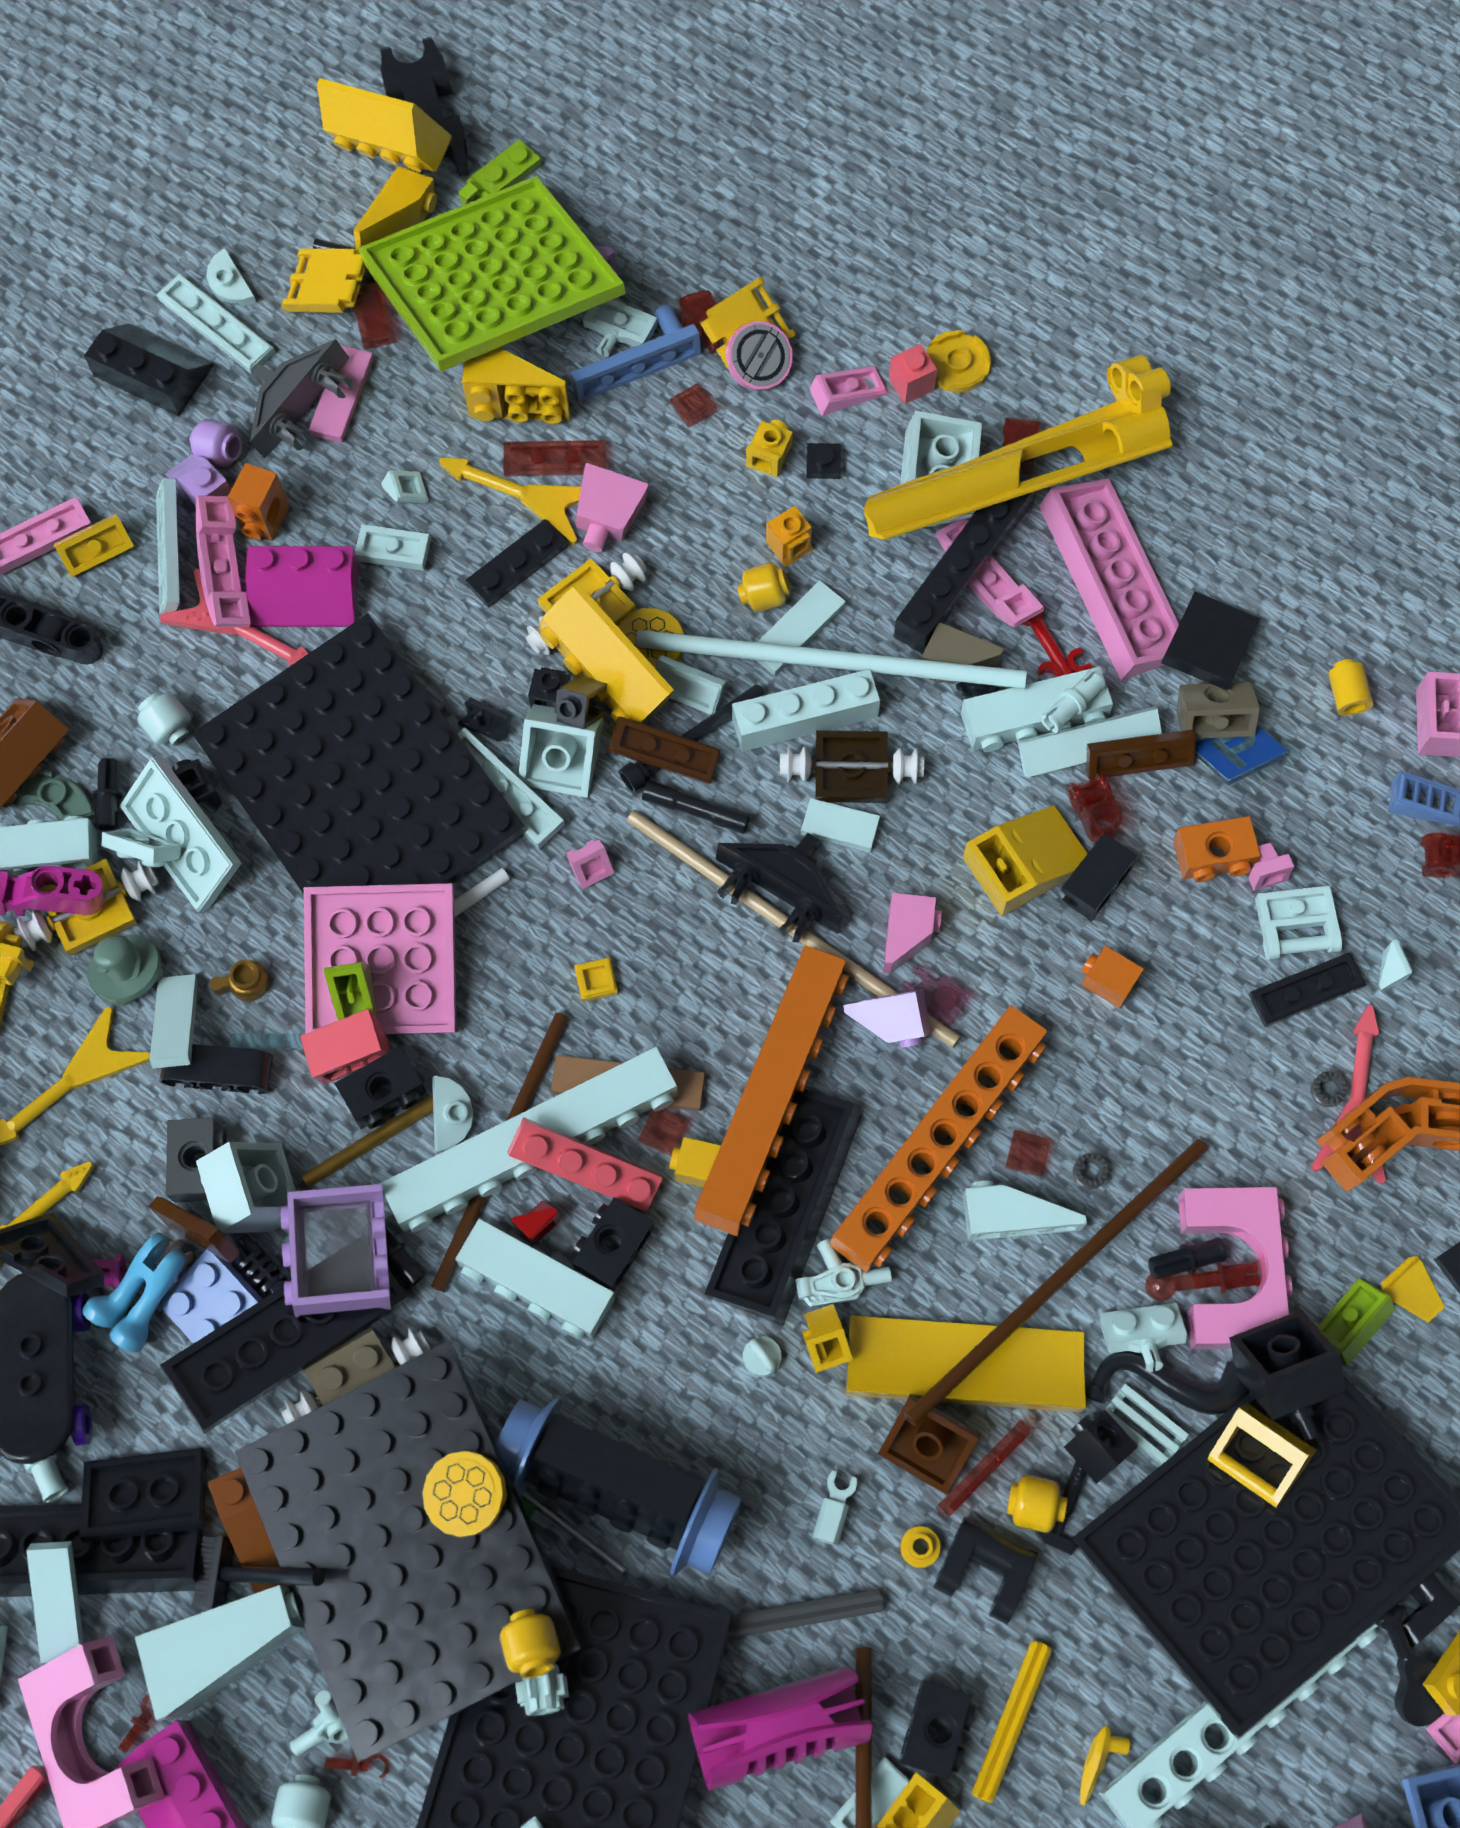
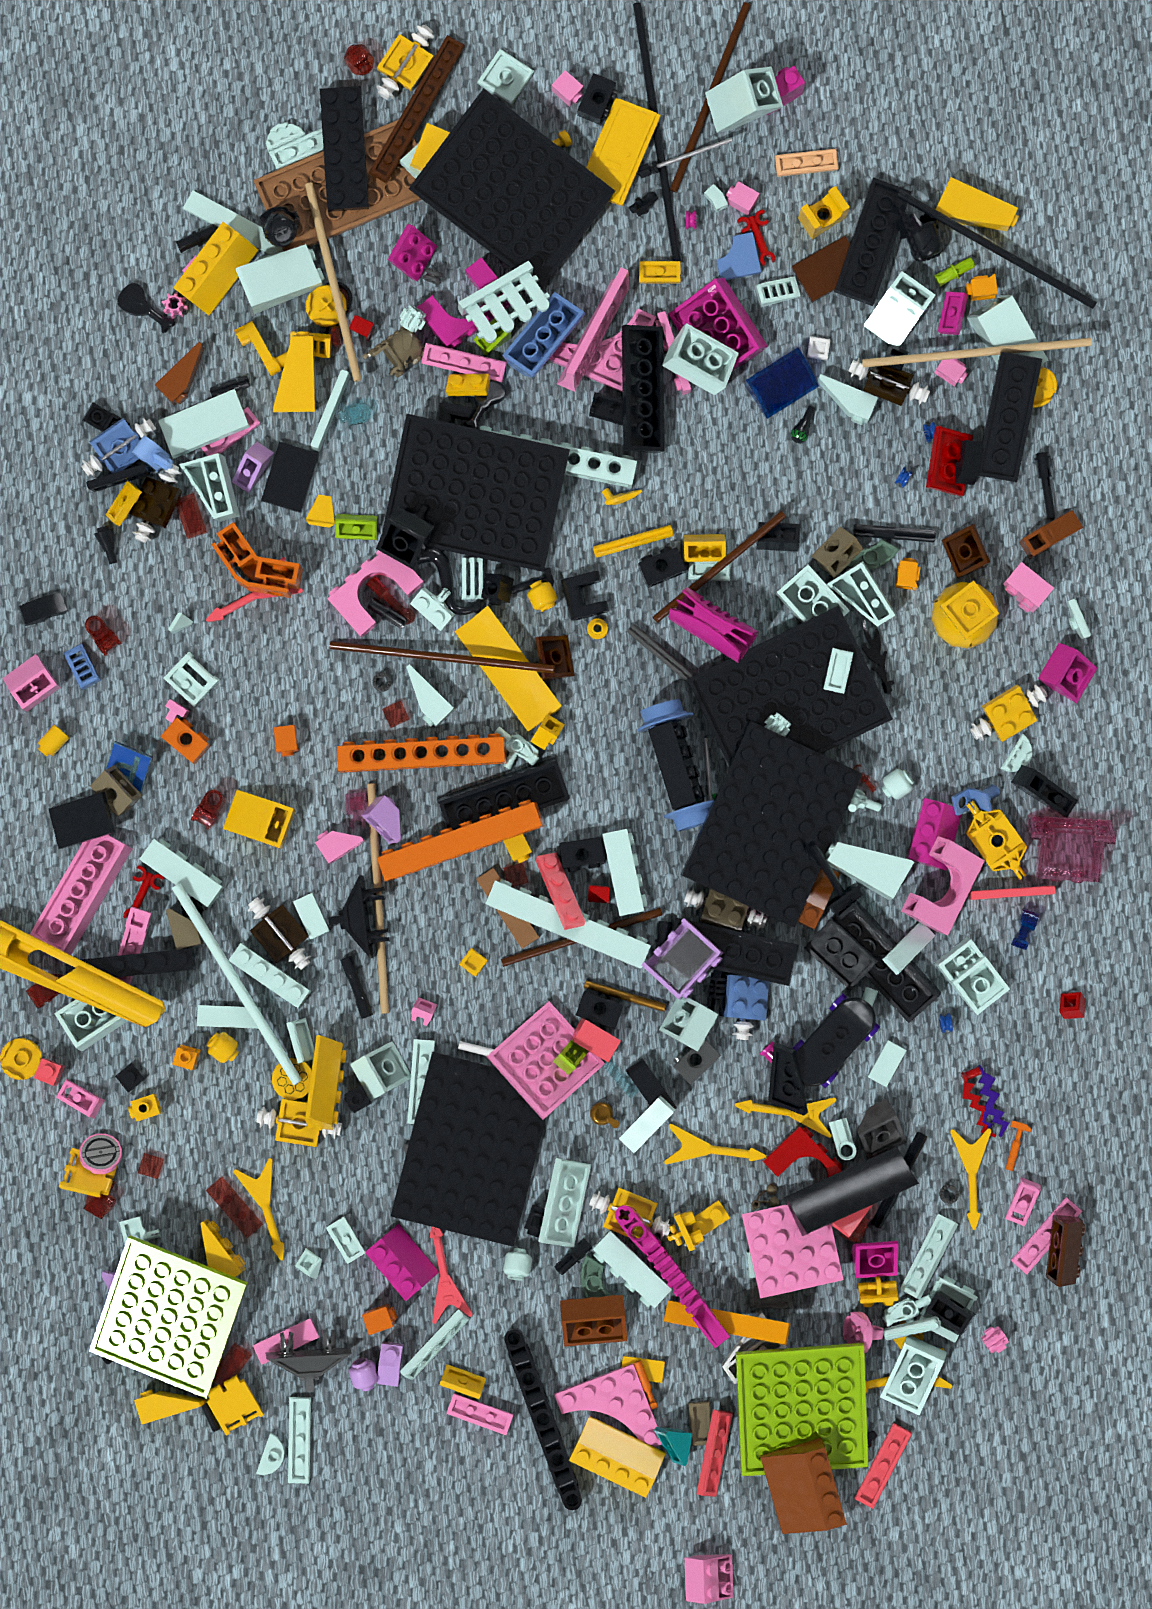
camera: 130 degrees left, 15 degrees up
(109, 1310) = (785, 1018): medium azure piece -> none
(124, 968) = (643, 1171): sand green plate -> none
(136, 844) = (584, 1214): light aqua plate -> none
(139, 1725) = (922, 876): clear red hand -> none
(147, 366) = (349, 1447): black slope -> none
(194, 1229) = (724, 1028): reddish brown tile -> none
(219, 563) = (424, 1311): bright pink slope -> none
(381, 126) = (130, 1446): yellow slope -> none
(422, 84) = (84, 1461): black piece -> none
(451, 1113) = (585, 970): light aqua plate -> none
(464, 1493) = (733, 814): yellow tile -> none
(485, 720) = (395, 1119): black piece -> none
(501, 172) = (98, 1376): lime hinge -> none
(516, 563) = (304, 1175): black plate -> none
(530, 1644) = (765, 739): yellow head -> none
(573, 702) = (356, 1076): window -> none
(607, 505) = (242, 1156): bright pink torso -> none
(636, 774) = (363, 1026): black piece -> none
(640, 361) = (126, 1199): medium blue piece -> none
(664, 750) = (343, 1022): reddish brown tile -> none
(762, 1356) = (575, 754): light aqua tile -> none
(833, 1512) = (612, 674): light aqua bar -> none
(983, 1469) = (544, 627): clear red tile -> none
(1069, 745) = (177, 836): light aqua tile -> none
(1073, 701) = (170, 855): light aqua pin -> none
(1098, 876) = (243, 781): black hinge -> none
(1141, 754) = (166, 808): reddish brown tile -> none
(1274, 1437) = (437, 519): yellow tile -> none
(1307, 989) = (220, 652): black tile -> none
(1322, 1079) = (263, 604): dark grey bush -> none

